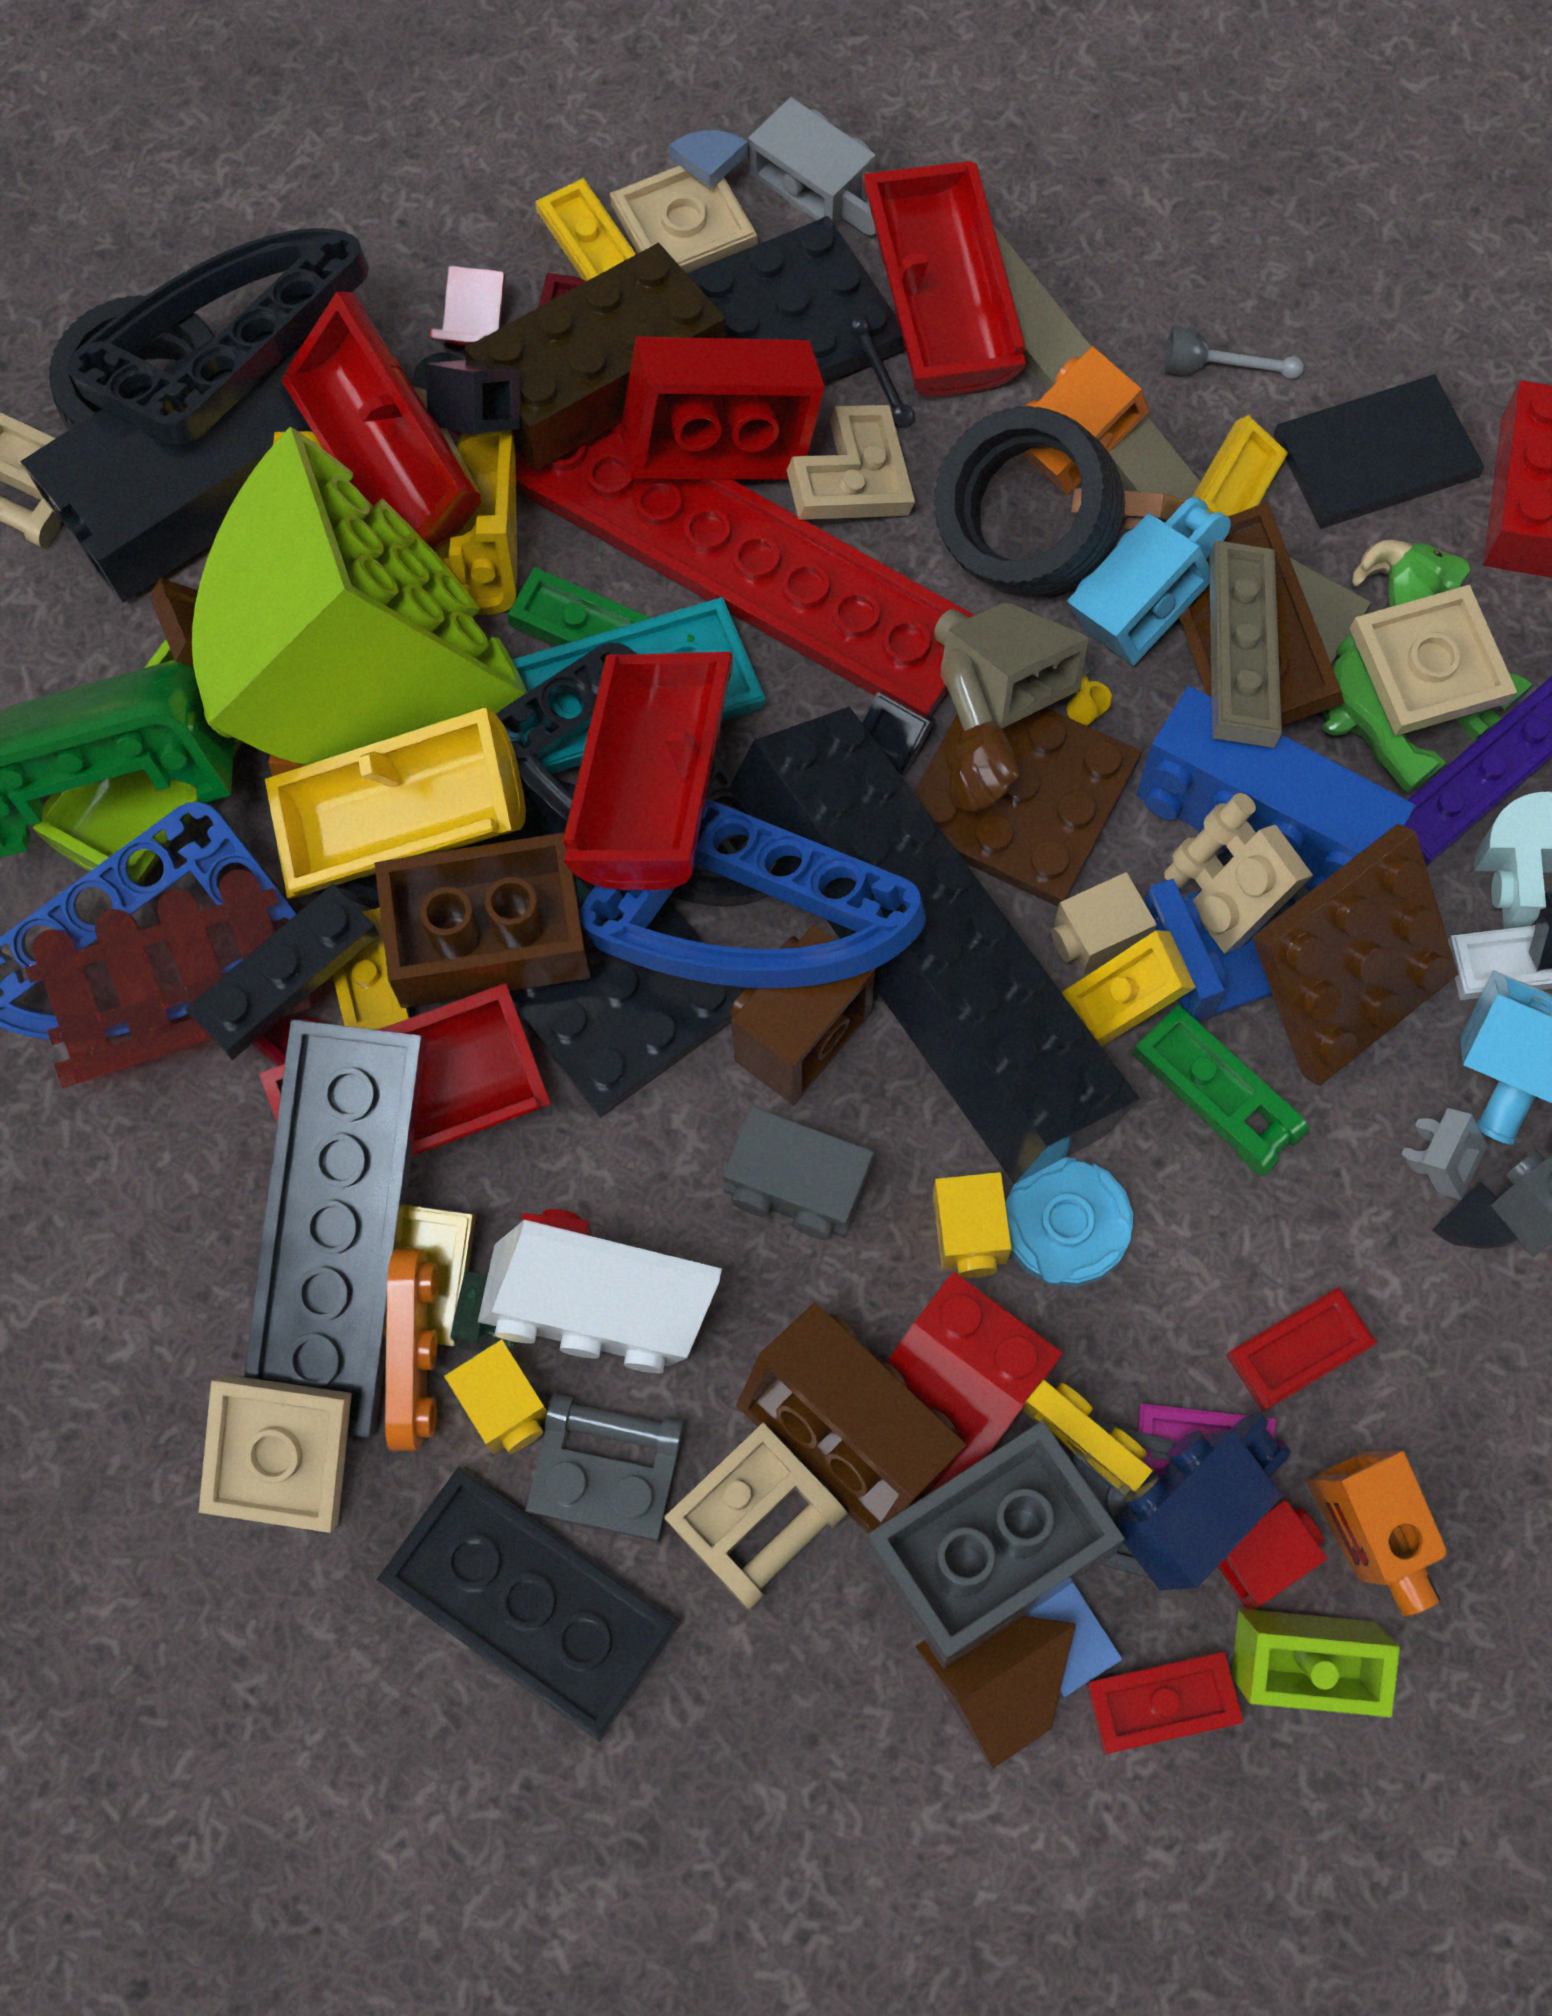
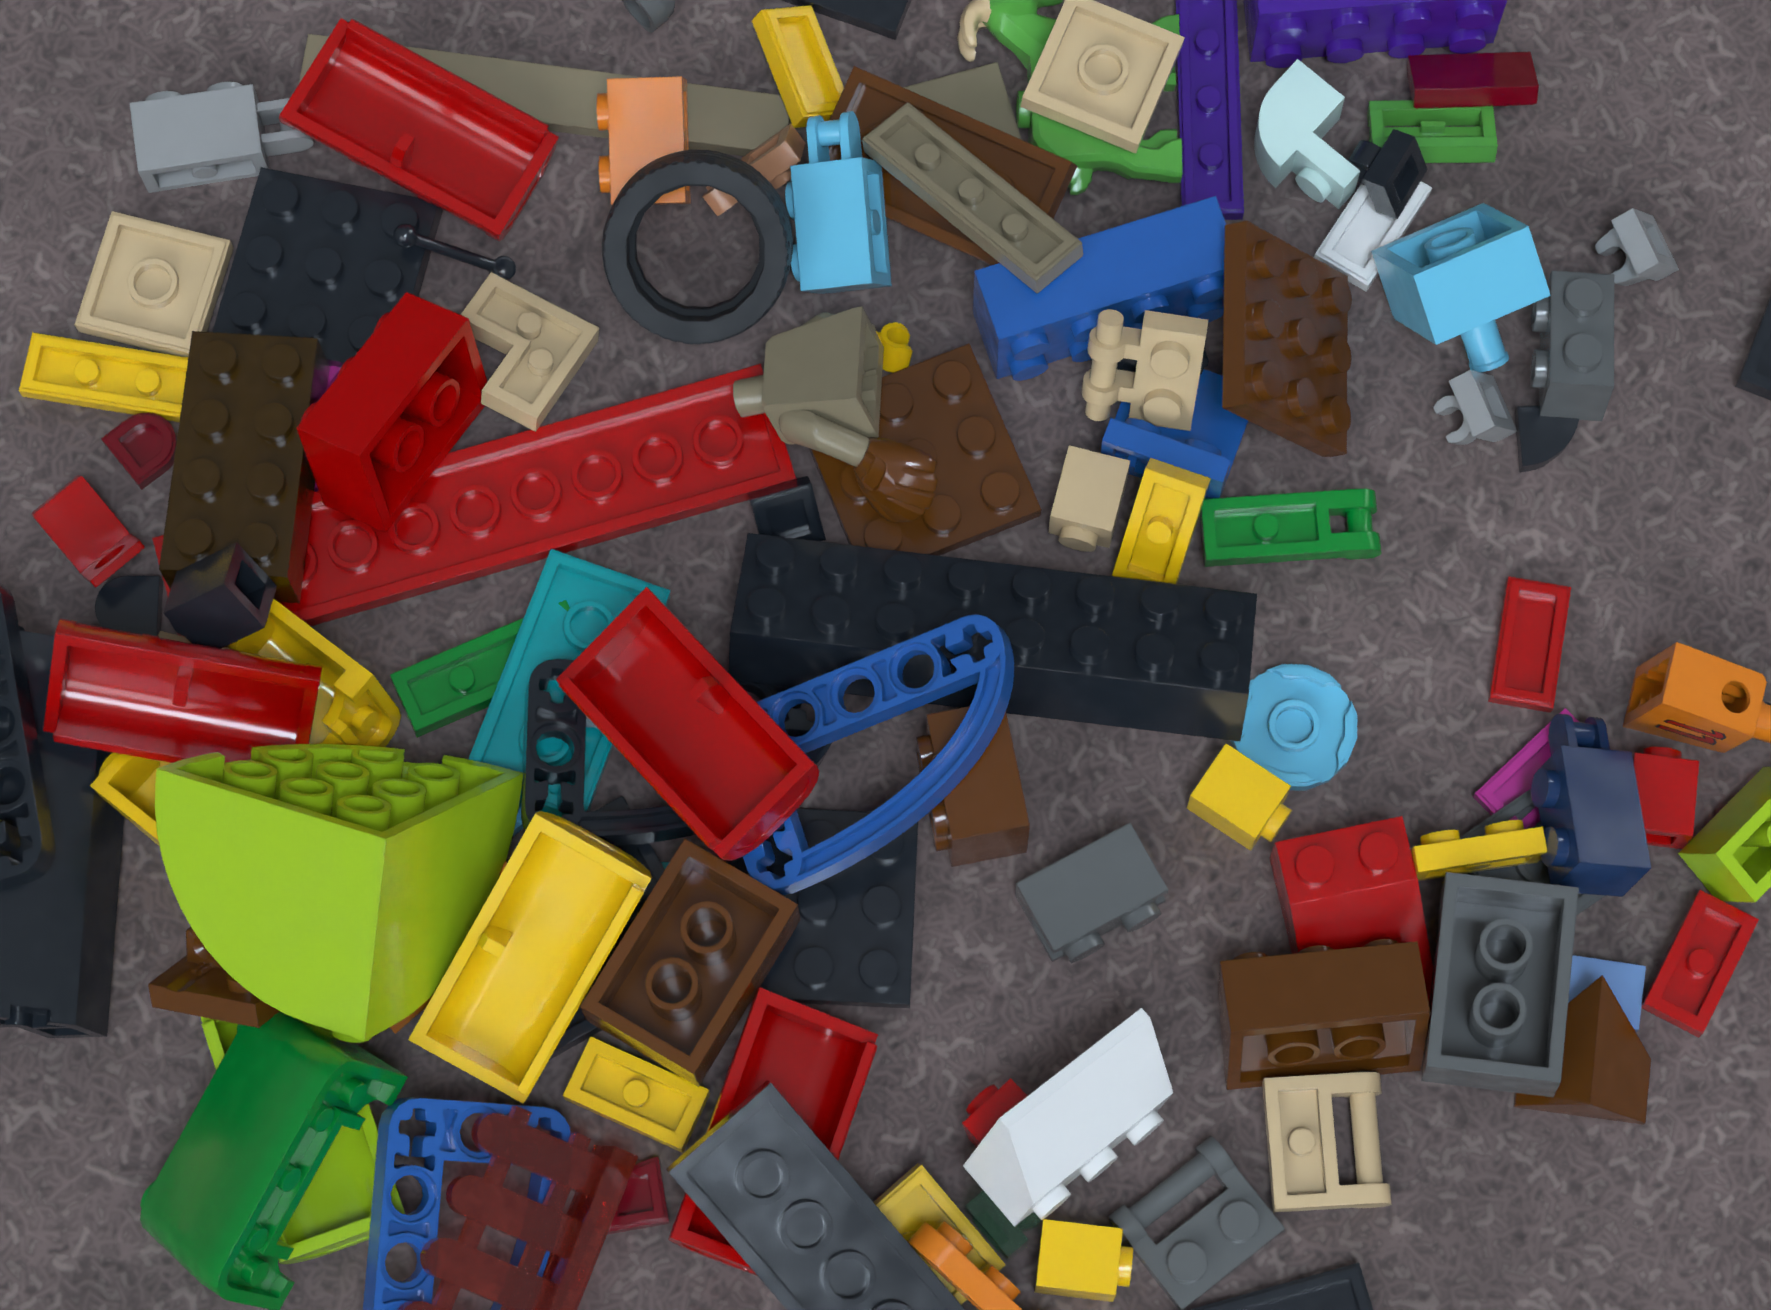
camera: 50 degrees left, 5 degrees up
(282, 971) = (595, 1154): black plate -> none
(708, 154) = (119, 215): sand blue tile -> none

